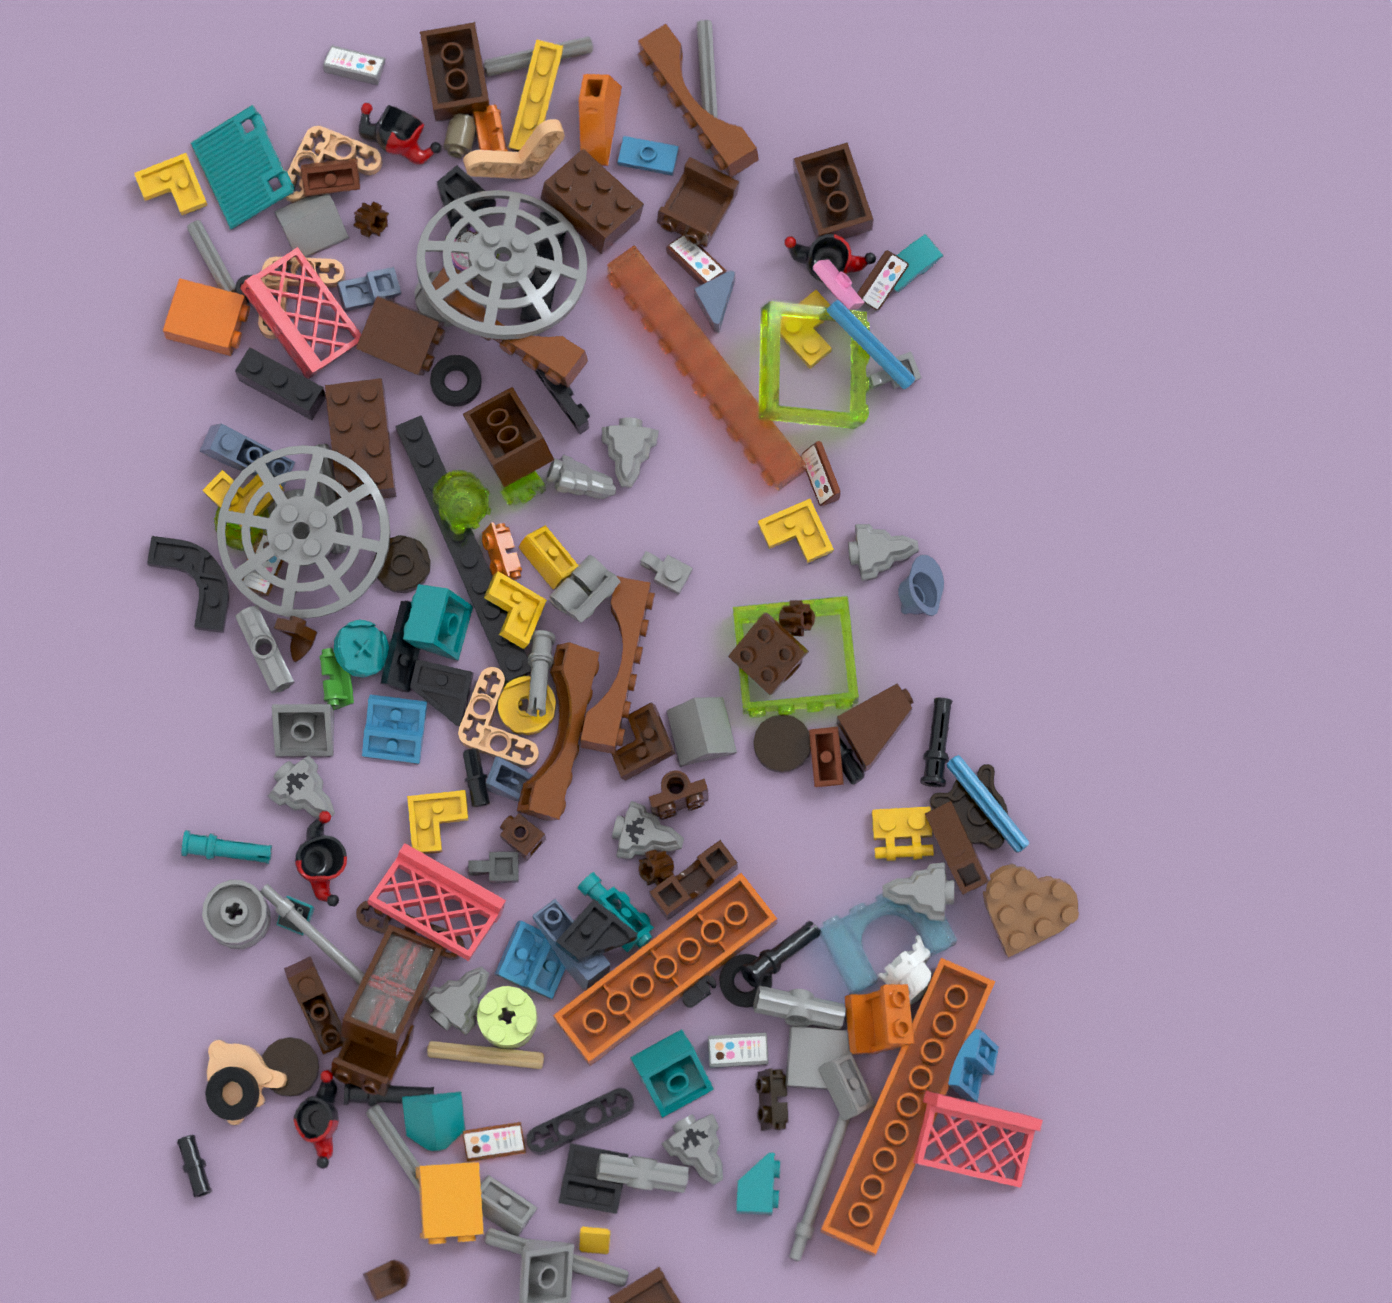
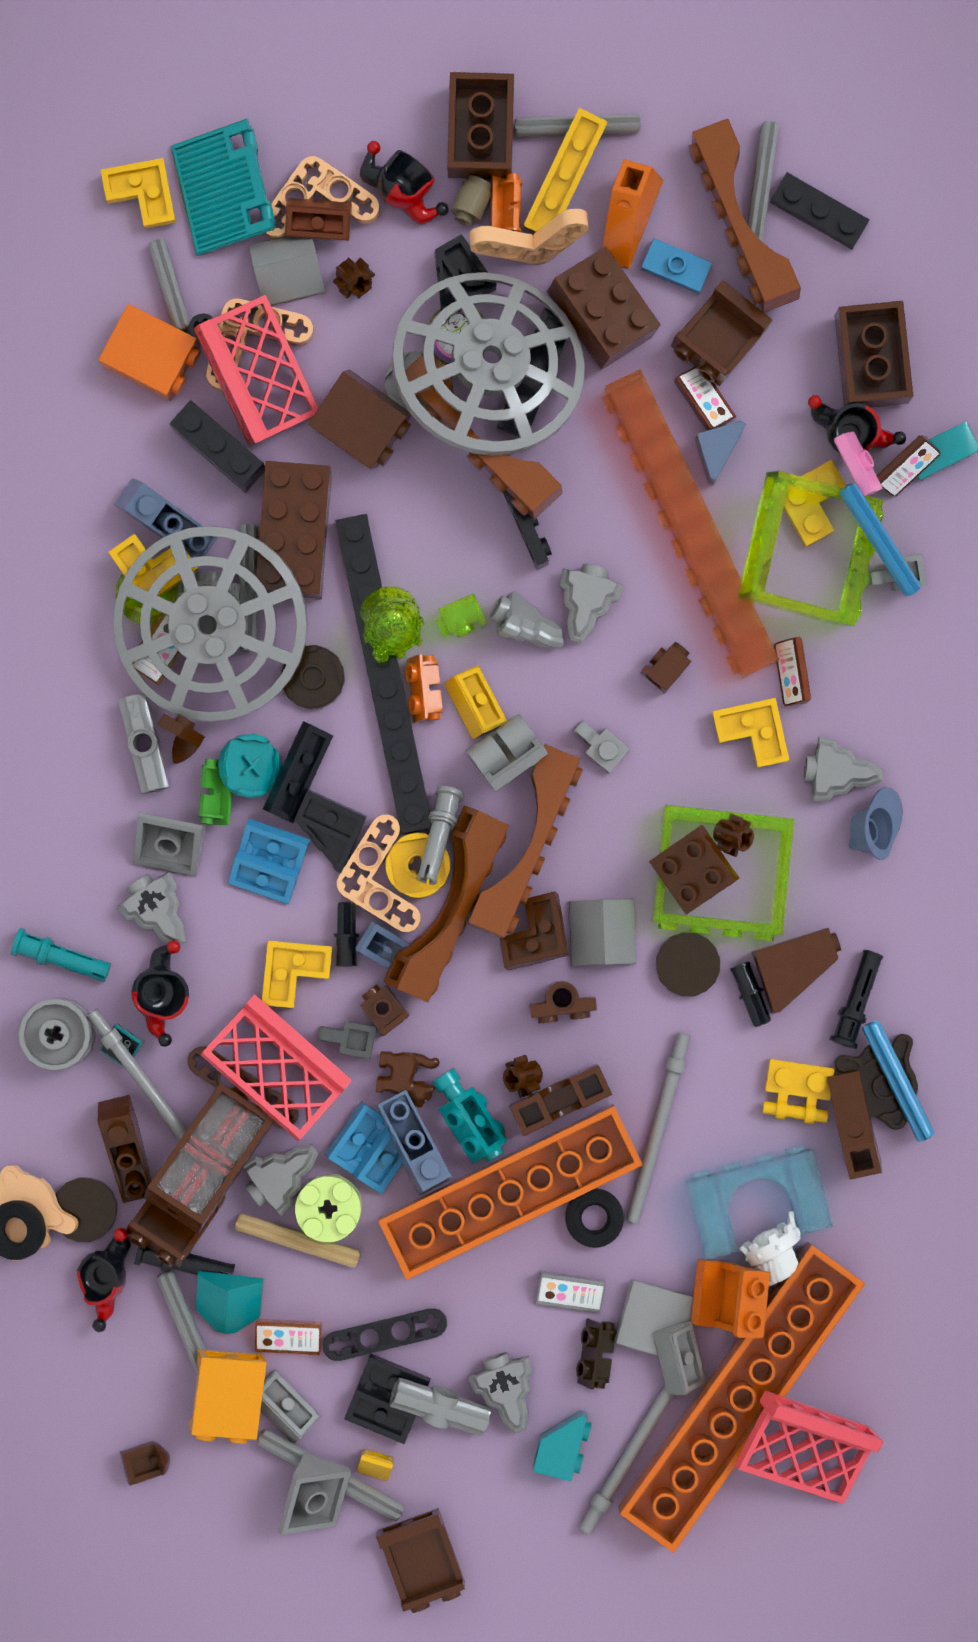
camera: 10 degrees right, 10 degrees up
(206, 572) = (96, 644): black plate -> none
(354, 65) = (369, 92): slope -> none
(363, 291) = (336, 356): sand blue slope -> none
(438, 621) = (338, 753): teal slope -> none
(450, 364) = (406, 462): black tyre -> none
(508, 437) = (456, 562): reddish brown brick -> none
(522, 607) = (434, 753): yellow plate -> none
(550, 886) = (403, 1069): none -> reddish brown animal
(594, 933) = (440, 1143): black wing -> none
(642, 832) = (516, 1034): light grey rock -> none
(672, 1073) = (493, 1303): teal slope -> none
(699, 991) = (541, 1222): black piece -> none
(710, 492) = (667, 666): none -> reddish brown brick
(761, 85) = (819, 210): none -> black plate
(771, 960) = (625, 1206): black pin -> none
(789, 833) = (675, 1067): none -> light grey bar
(799, 1008) = (646, 1263): light grey piece -> none
(826, 757) = (733, 992): copper slope -> none
(924, 891) = (809, 1168): light grey rock -> none
(974, 1059) = (827, 1357): dark azure slope -> none
(1027, 907) = (917, 1206): medium nougat plate -> none

